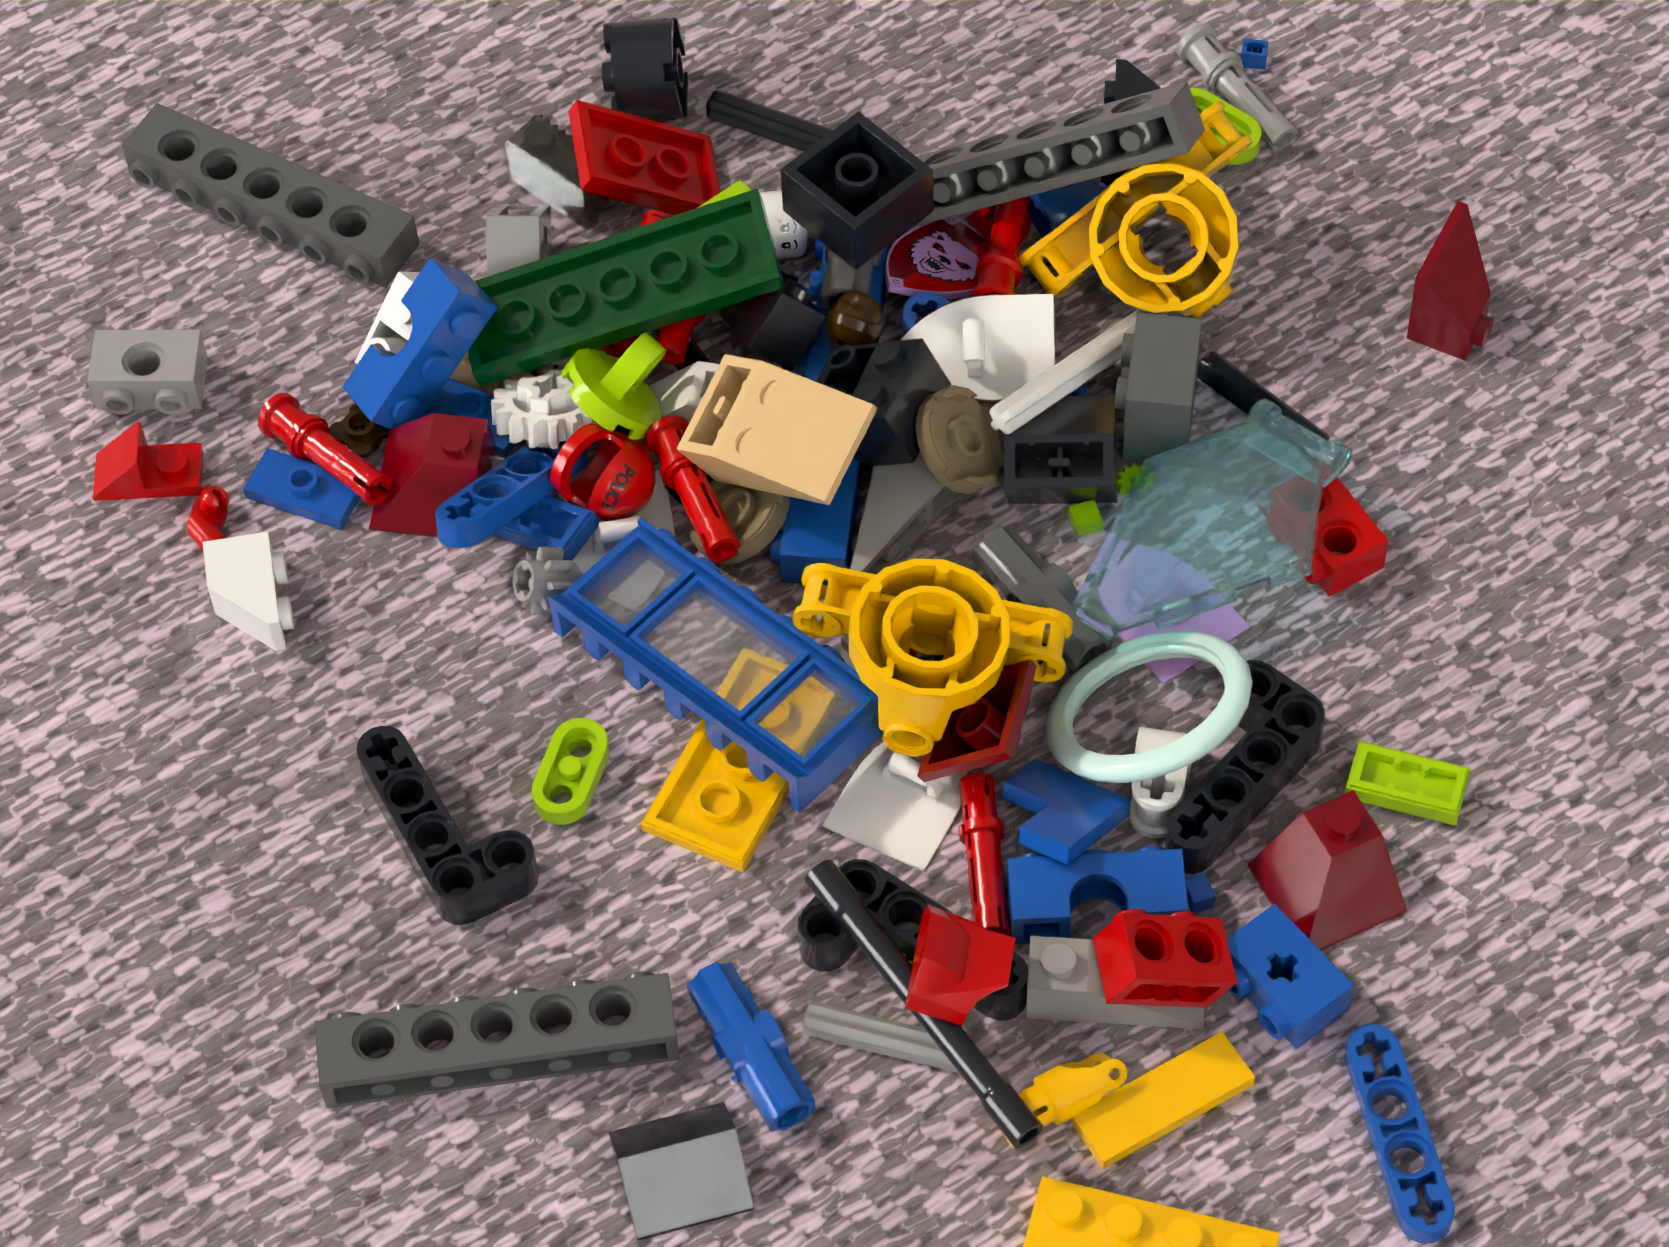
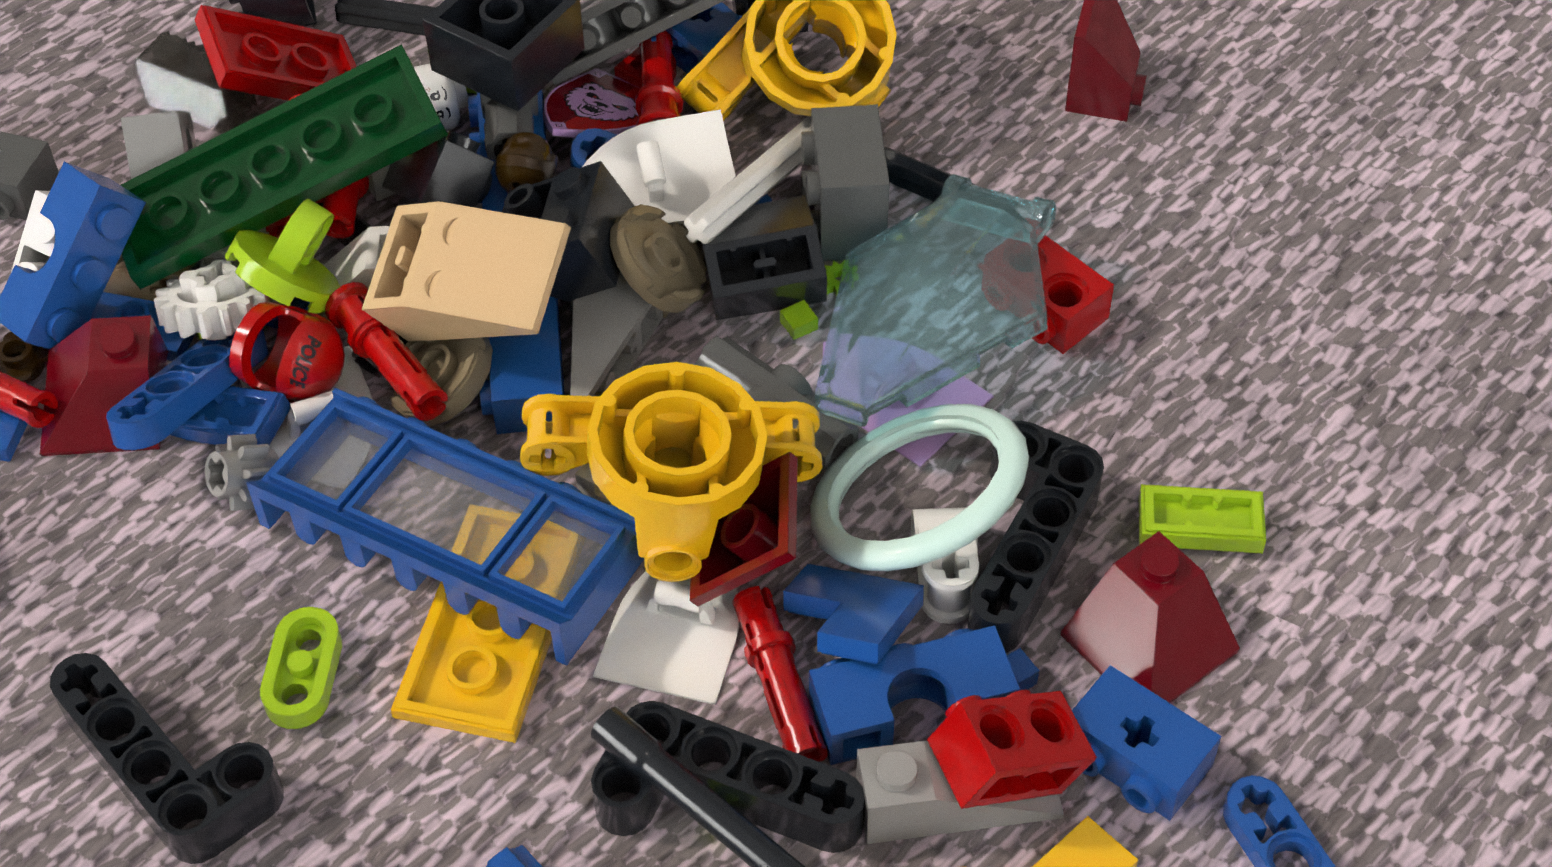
camera: 15 degrees left, 5 degrees down
(956, 965) = (786, 798): red slope -> none

